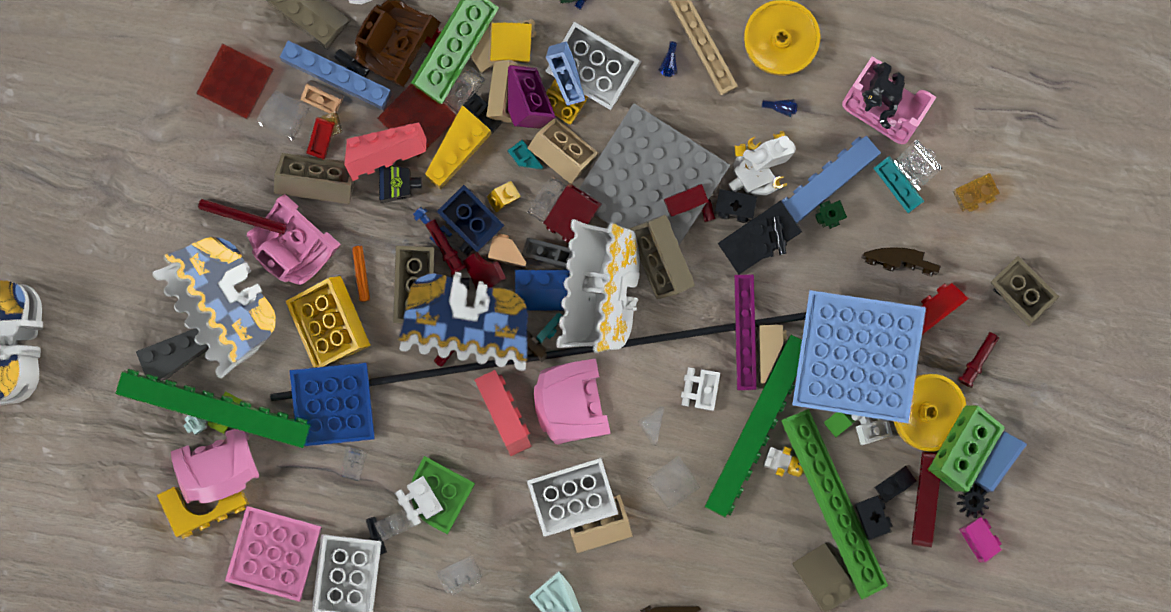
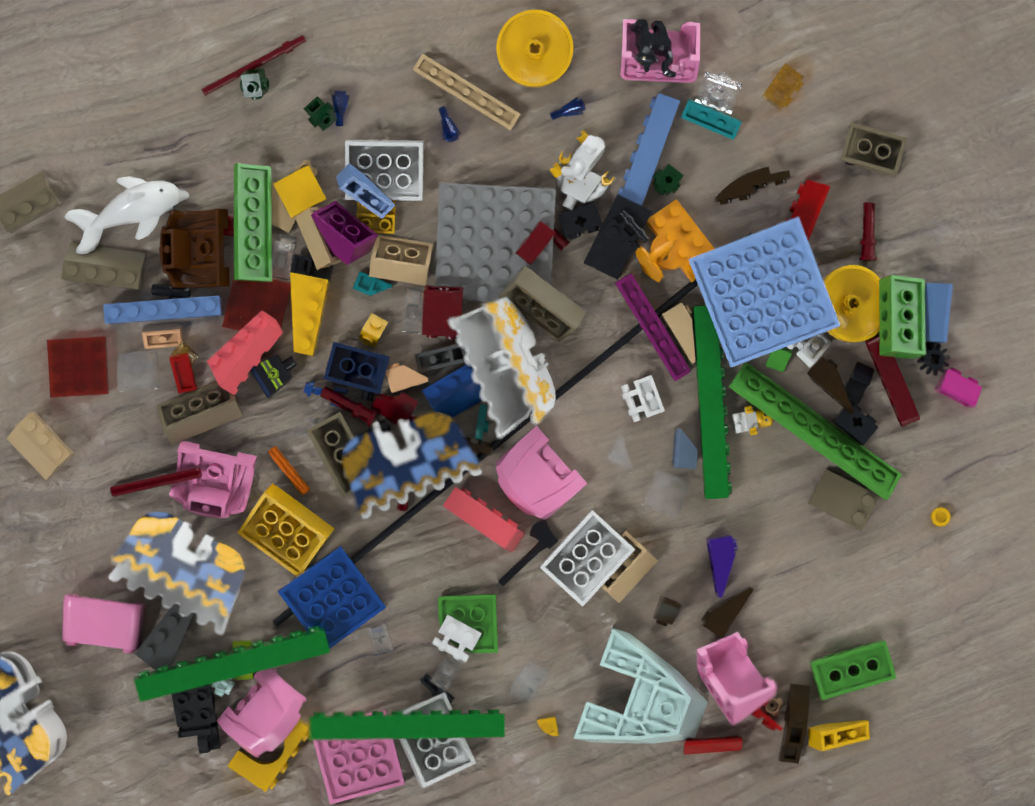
camera: 25 degrees left, 5 degrees up
(125, 309) = (102, 622): none -> bright pink windscreen
(156, 436) = (197, 717): none -> black plate
(162, 128) = (40, 445): none -> tan slope
(331, 550) = (406, 726): none -> green brick
(546, 462) = (546, 540): none -> black piece
(614, 584) = (666, 611): none -> dark brown slope
(689, 564) = (721, 557): none -> dark purple slope
(710, 455) = (683, 451): none -> sand blue slope
(809, 269) = (675, 239): none -> light orange plate
(871, 463) = (829, 380): none -> dark brown slope

